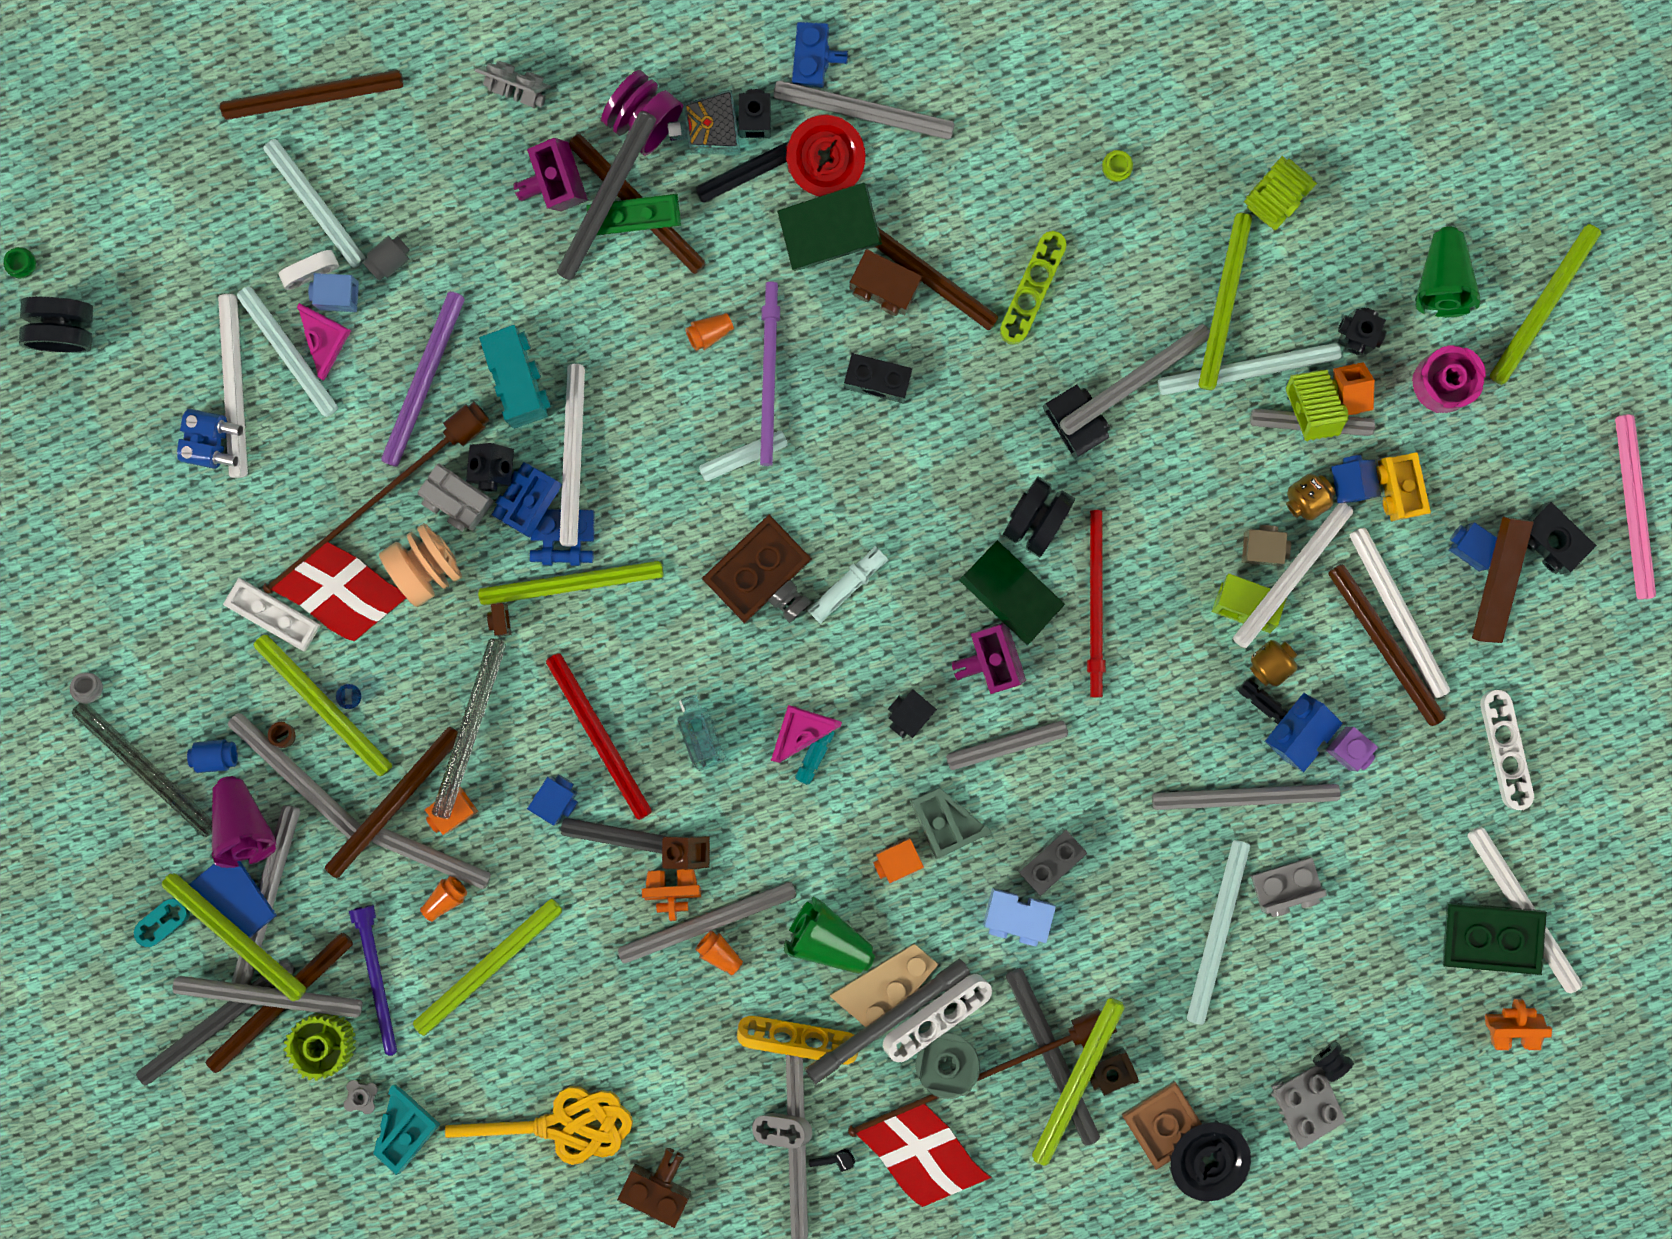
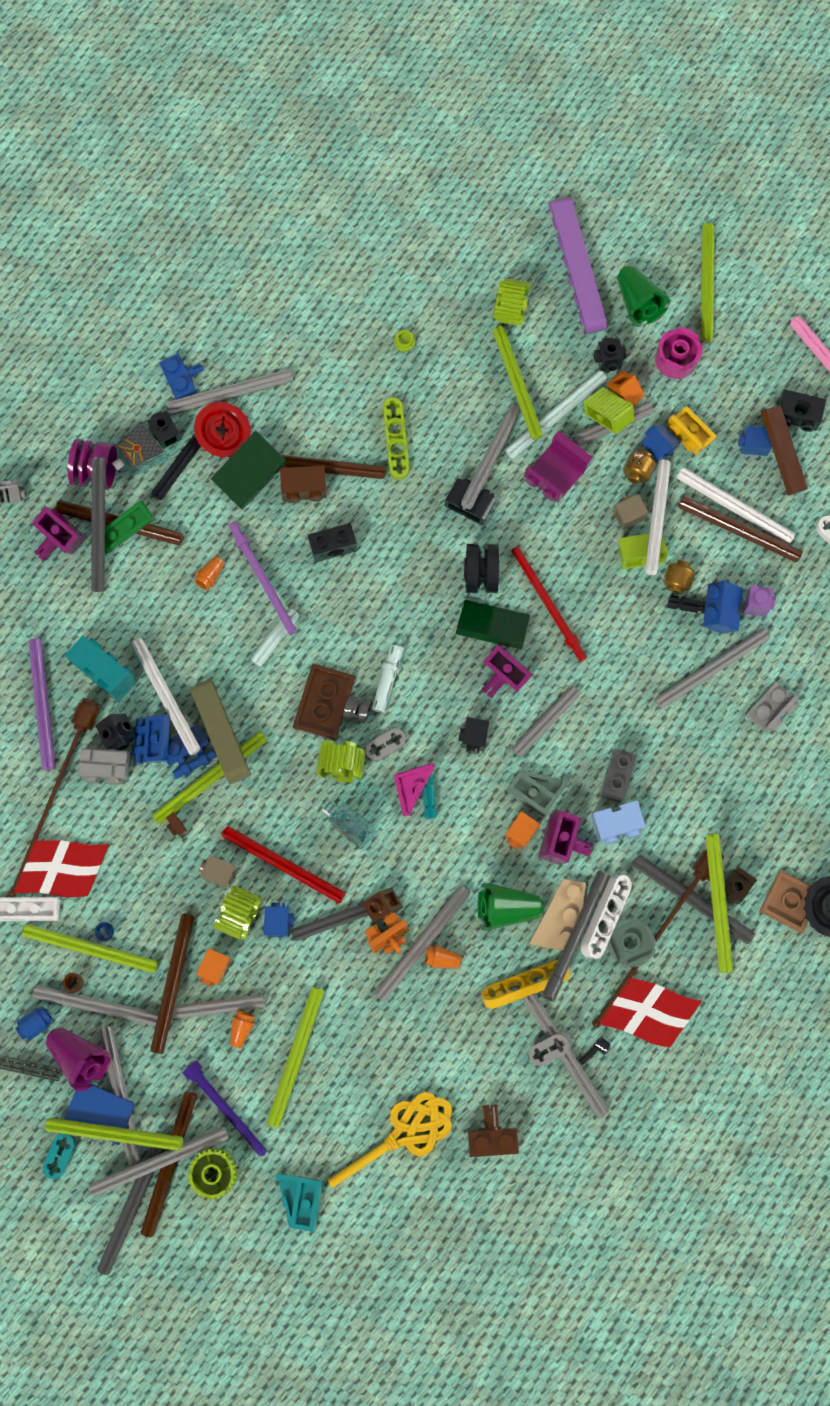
camera: 35 degrees left, 10 degrees down
(367, 1090) = (256, 1201): light grey plate -> none
(420, 565) = (106, 817): light nougat wheel -> none
(468, 729) = (196, 906): clear smoke axle -> none
(510, 765) = (237, 913): none -> lime brick
(516, 703) = (217, 872): none -> dark tan brick
(612, 536) = (220, 731): none -> olive beam
(733, 656) = (340, 761): none -> lime brick
(799, 655) = (389, 749): none -> light grey beam
(939, 899) = (561, 839): none -> magenta brick
(1209, 440) = (558, 467): none -> magenta panel
(1218, 932) = (748, 761): light aqua axle -> none
(1395, 188) = (578, 265): none -> medium lavender beam

